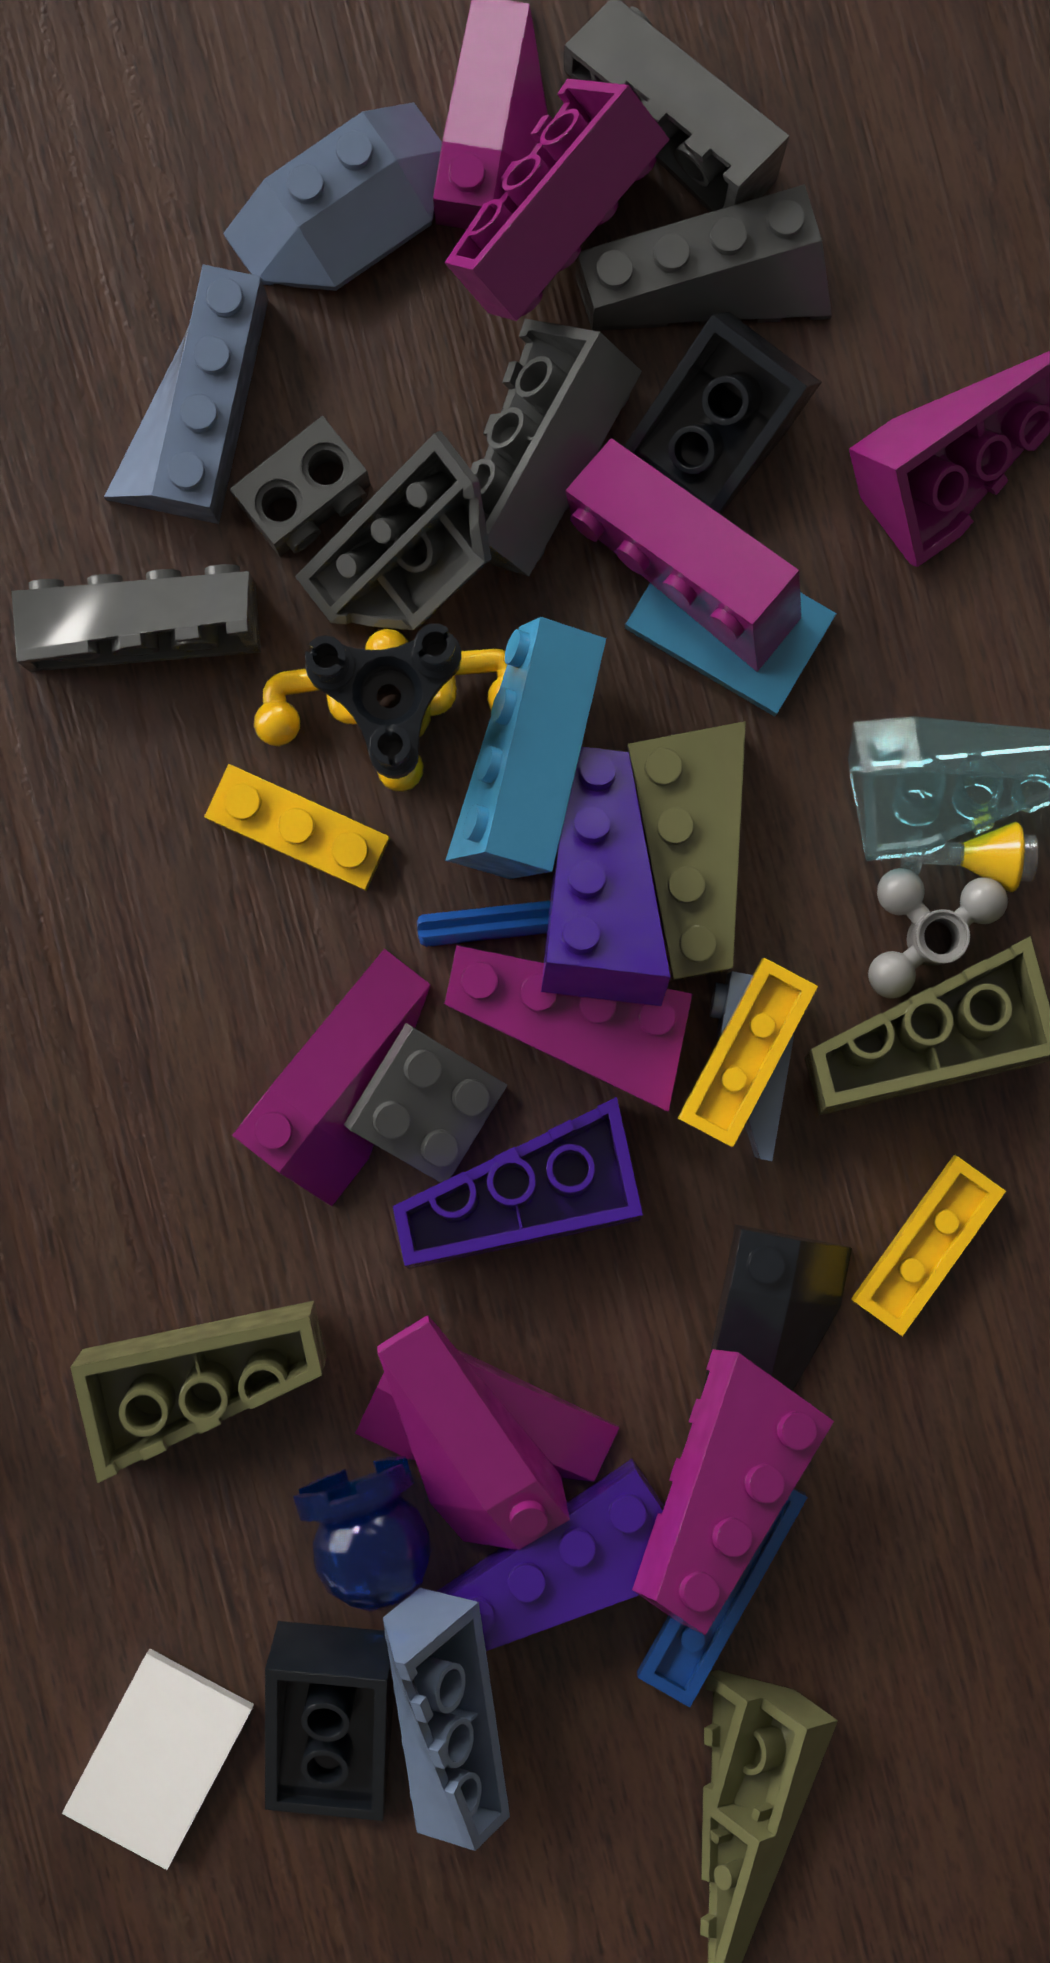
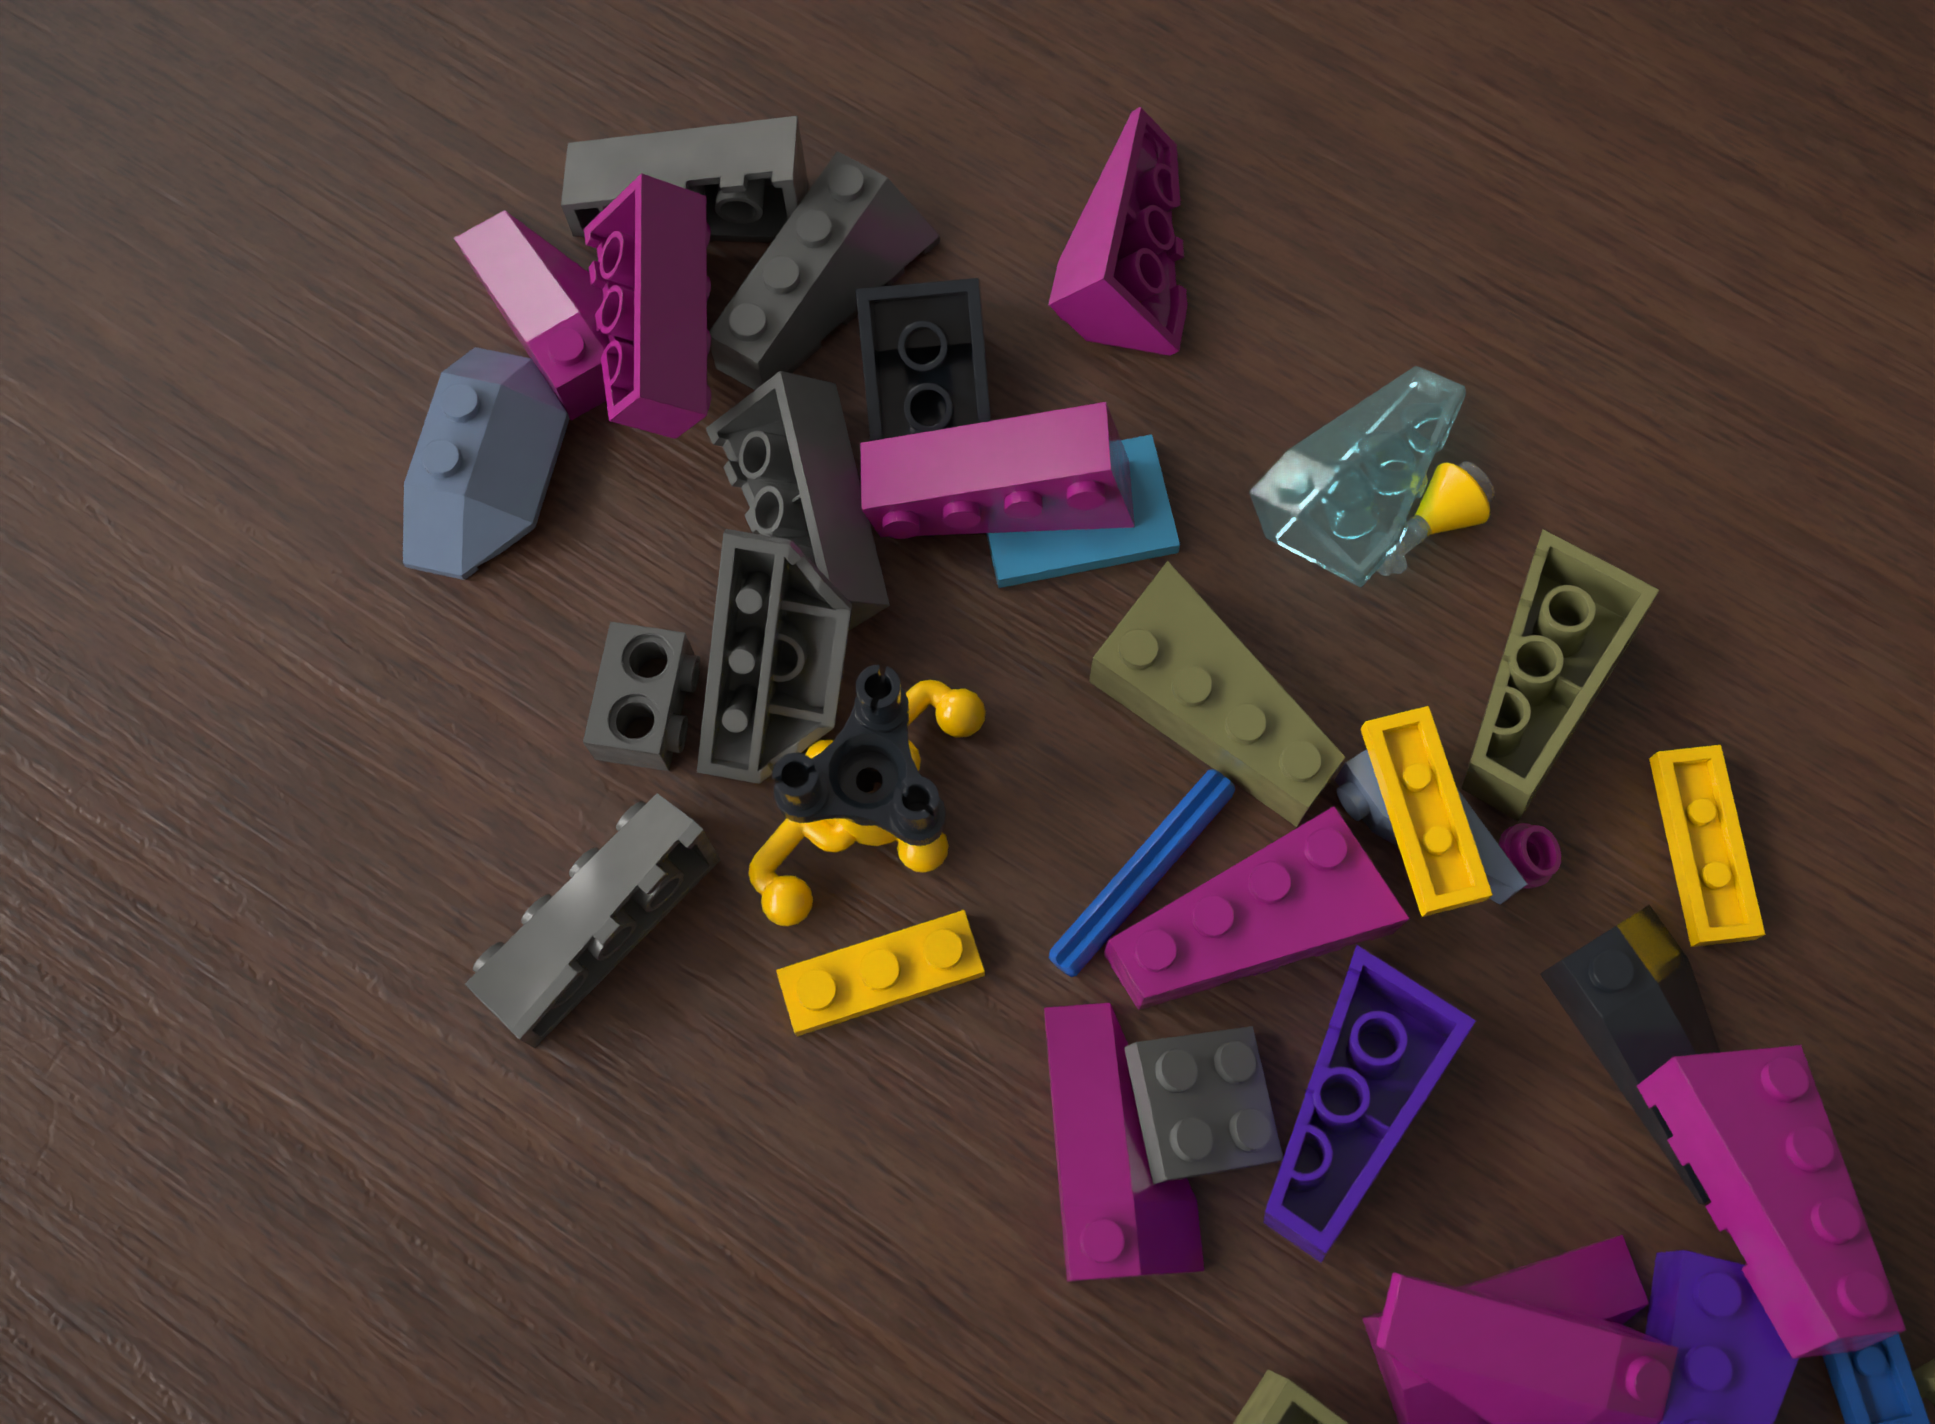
camera: 40 degrees left, 15 degrees down
(194, 421) = (502, 726): sand blue wedge -> none
(529, 752) = (1024, 737): dark azure wedge -> none
(603, 898) = (1188, 789): dark purple wedge -> none
(812, 1148) = (1532, 852): none -> magenta plate
(902, 893) = (1409, 592): light grey piece -> none

